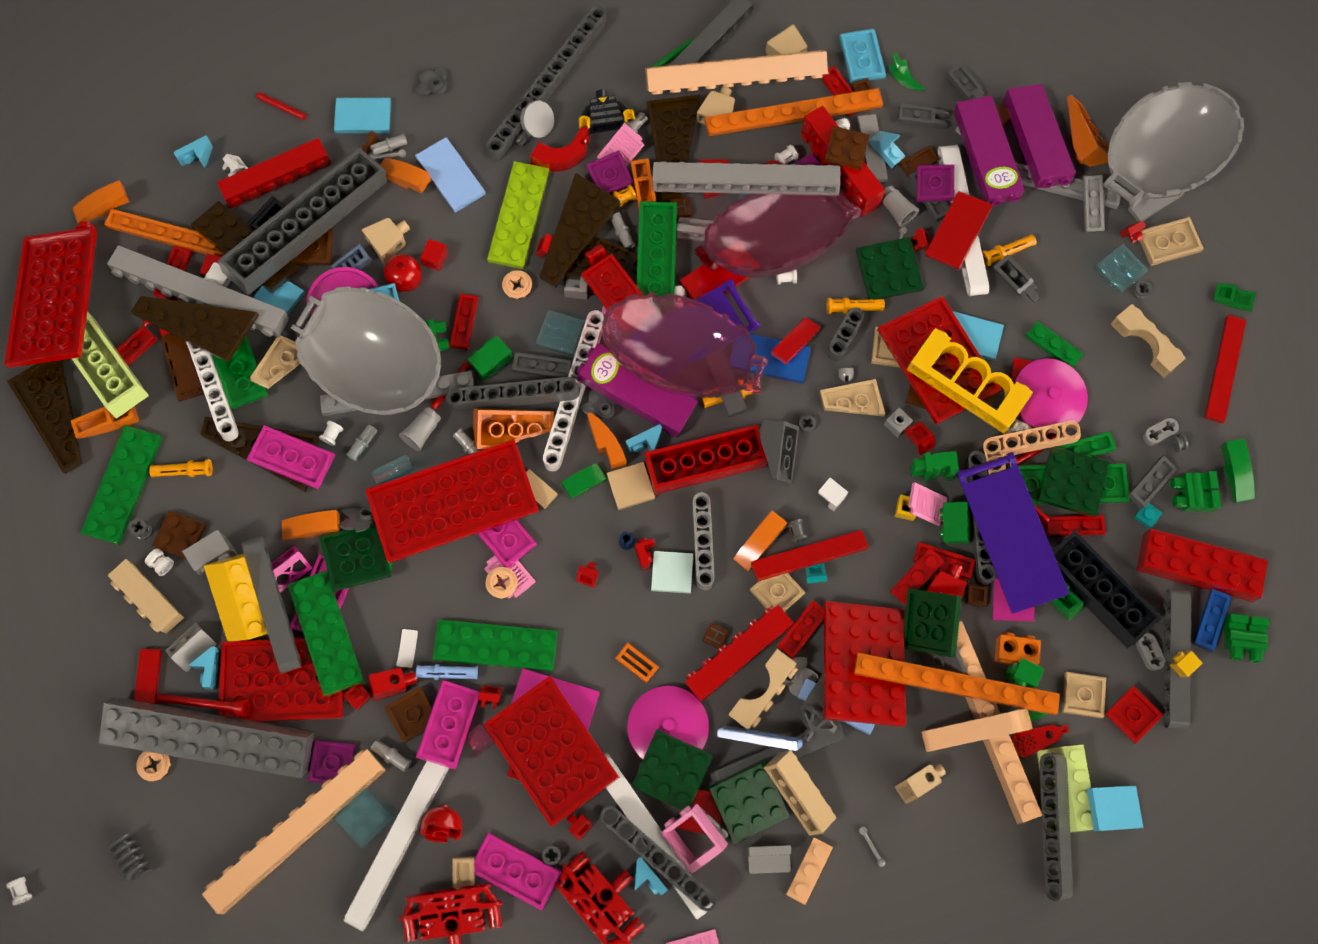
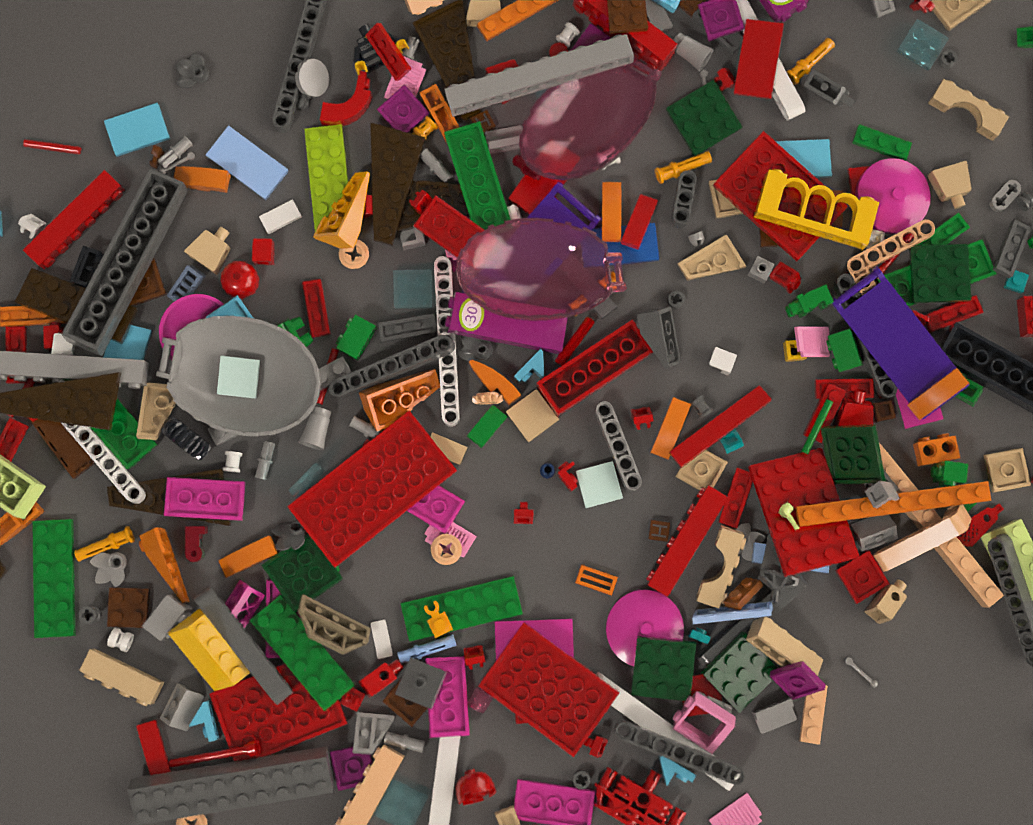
camera: 20 degrees left, 10 degrees up
(175, 494) = (107, 569): none -> light grey plate
(229, 492) = (160, 553): none -> orange wedge
(265, 495) = (194, 542): none -> dark red leg
(295, 395) = (186, 438): none -> black gear
(361, 615) = (332, 627): none -> dark tan wedge
(361, 732) = (370, 731): none -> light grey wing
(366, 355) = (238, 376): none -> light aqua tile
(427, 701) = (421, 683): none -> dark grey plate
(462, 230) = (280, 216): none -> white tile
(467, 649) = (439, 622): none -> light orange plate
(520, 250) = (345, 220): none -> light orange wedge
(593, 453) = (487, 398): none -> light nougat gear
(614, 116) = (388, 51): none -> red plate
(697, 429) = (574, 341): none -> red axle
(719, 751) = (700, 635): none -> teal plate
(737, 520) = (642, 415): none -> red tile
(772, 322) = (611, 211): none -> orange slope
(777, 723) = (742, 593): none -> dark orange plate
(803, 828) = (797, 680): none -> magenta tile
(845, 655) = (785, 511): none -> yellowish green hand
(903, 750) = (862, 577): none -> red plate
(905, 585) = (817, 426): none -> green bar
(930, 709) = (874, 531): none -> light grey panel
(947, 665) = (881, 493): none -> light grey panel
(1035, 591) = (938, 393): none -> orange slope
(1110, 402) = (951, 183): none -> tan torso

